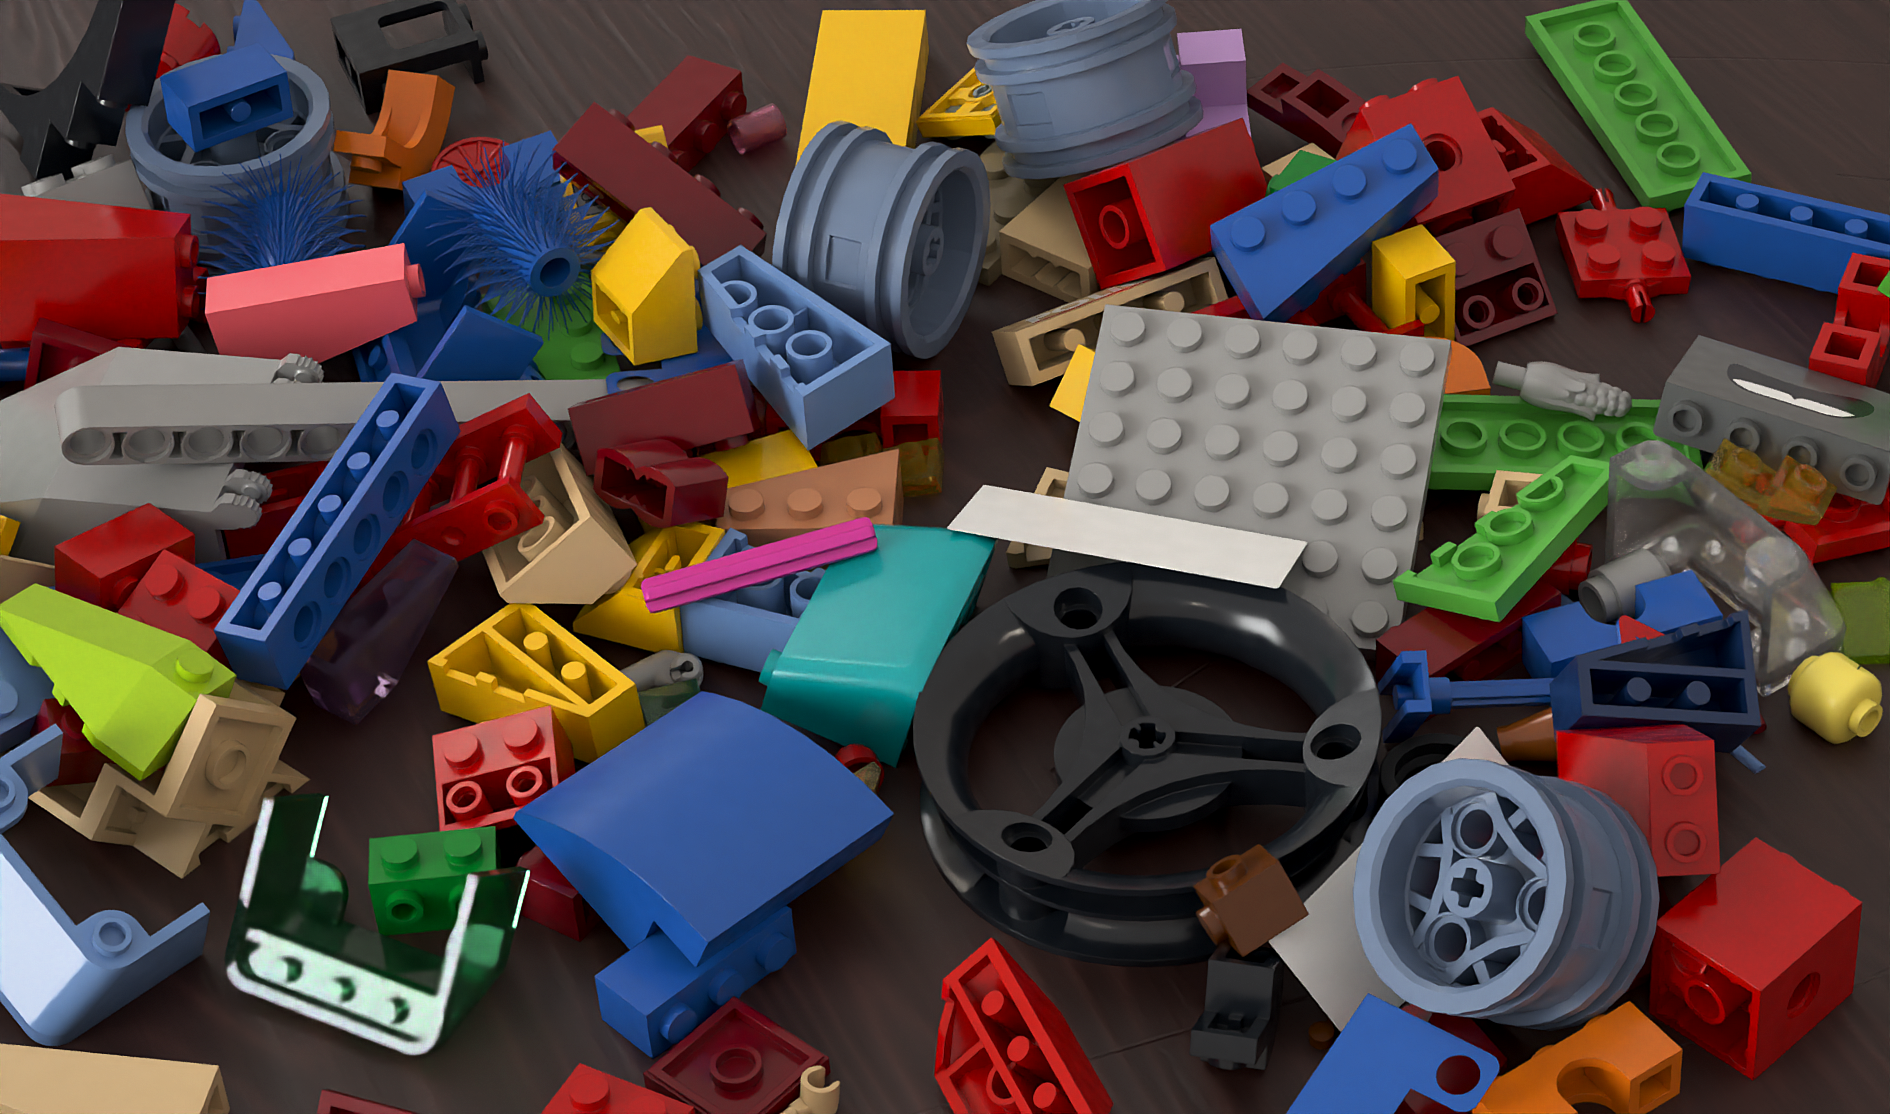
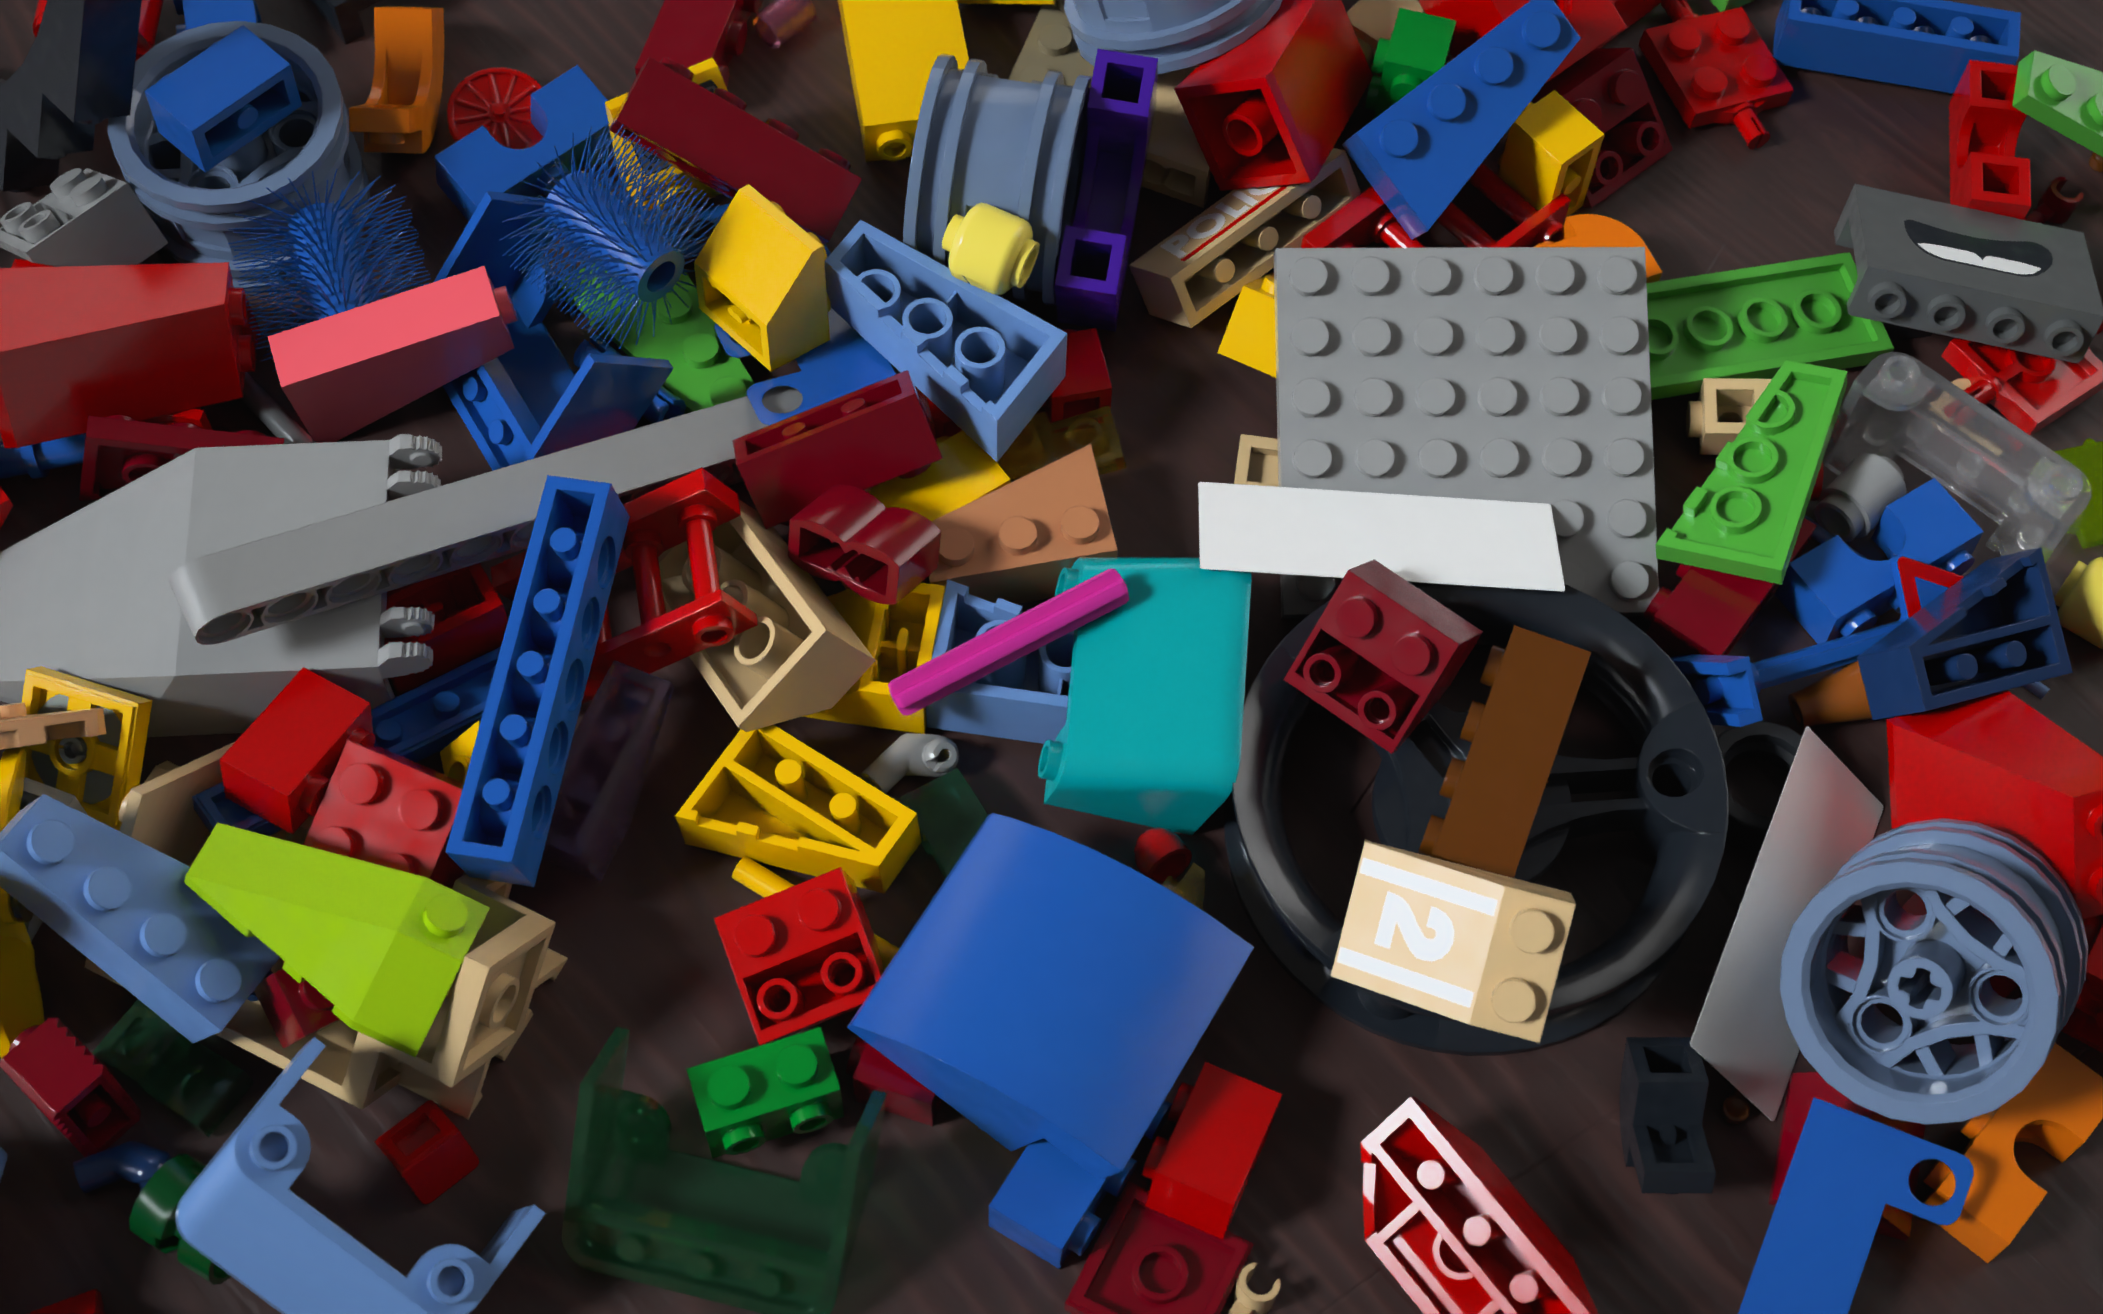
camera: 20 degrees left, 20 degrees up
(140, 890) = (428, 1152): none -> red slope
(813, 975) = (1211, 1150): none -> red brick
(841, 269) = (990, 249): none -> light yellow head
(953, 315) = (1116, 151): none -> dark purple arch
(1063, 804) = (1454, 939): none -> tan slope
(1084, 604) = (1382, 654): none -> dark red slope
(1164, 699) = (1509, 754): none -> reddish brown brick
(1248, 900) = (1663, 1005): reddish brown brick -> none
(1563, 389) = (1739, 268): light grey piece -> none
(1788, 493) = (1987, 369): clear yellow slope -> none

